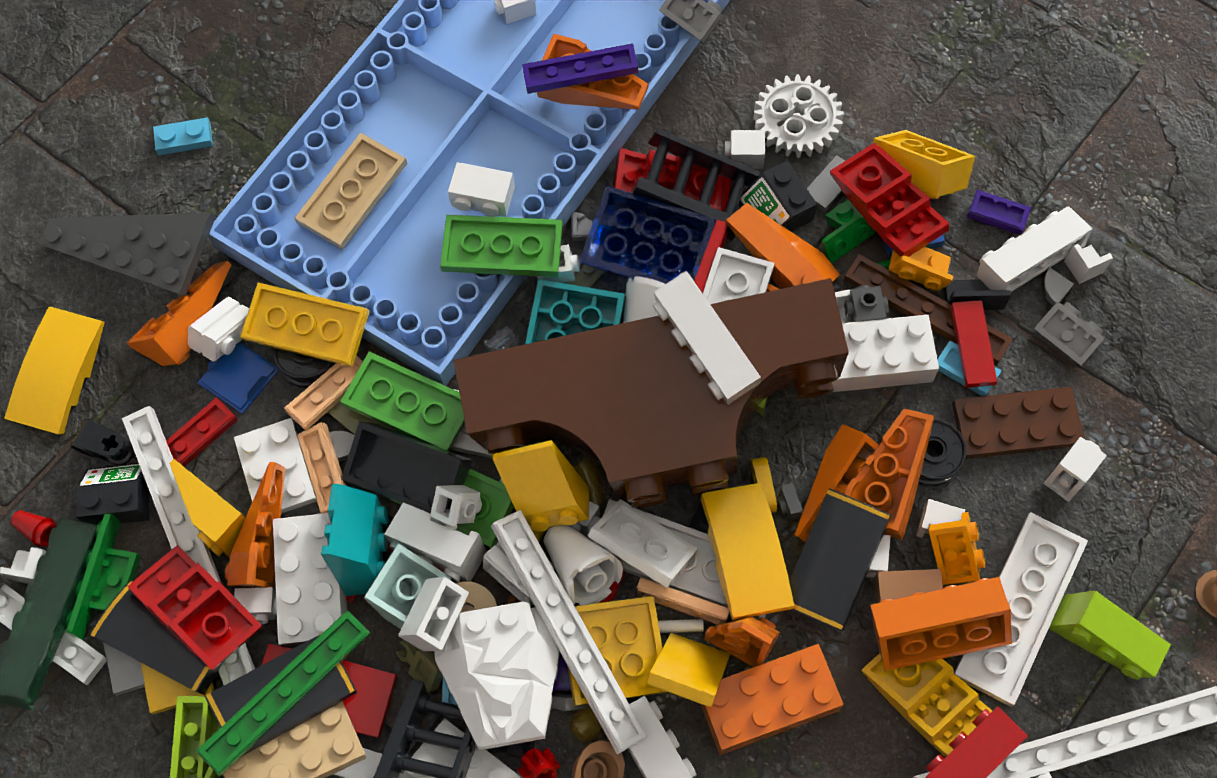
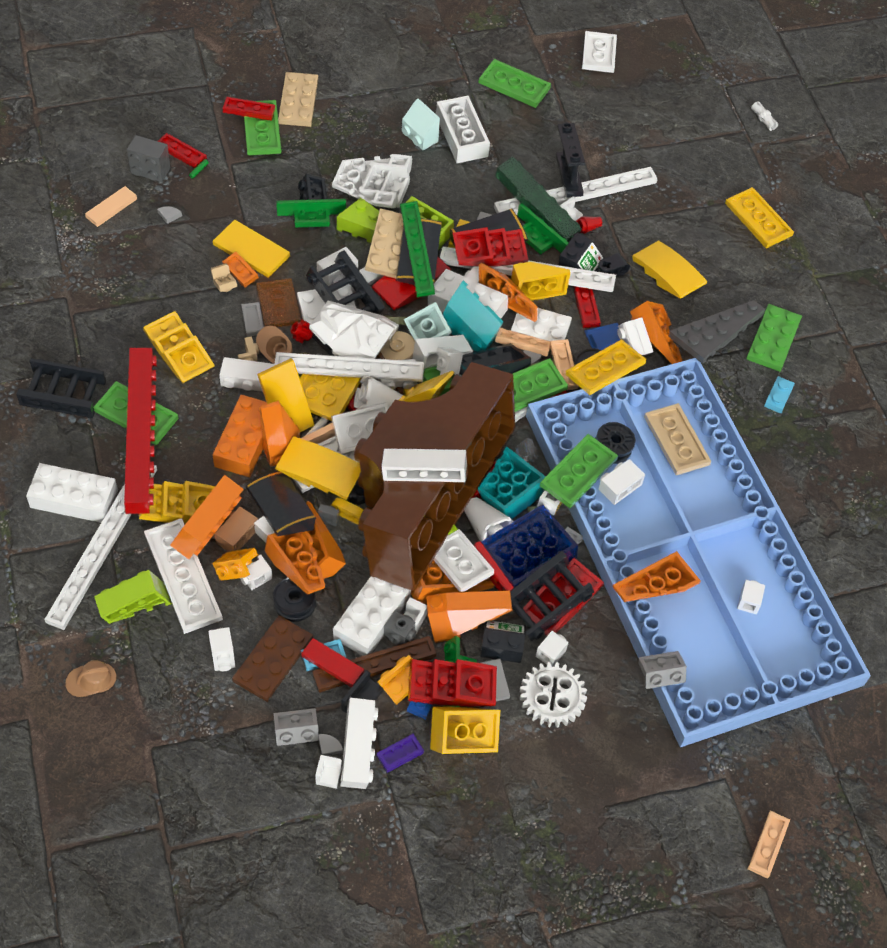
camera: 120 degrees right, 10 degrees down
(88, 189) = (774, 337): none -> bright green plate
(408, 236) = (618, 439): none -> black wheel
(433, 614) = (403, 320): white brick -> none
(580, 68) = (660, 570): dark purple plate -> none

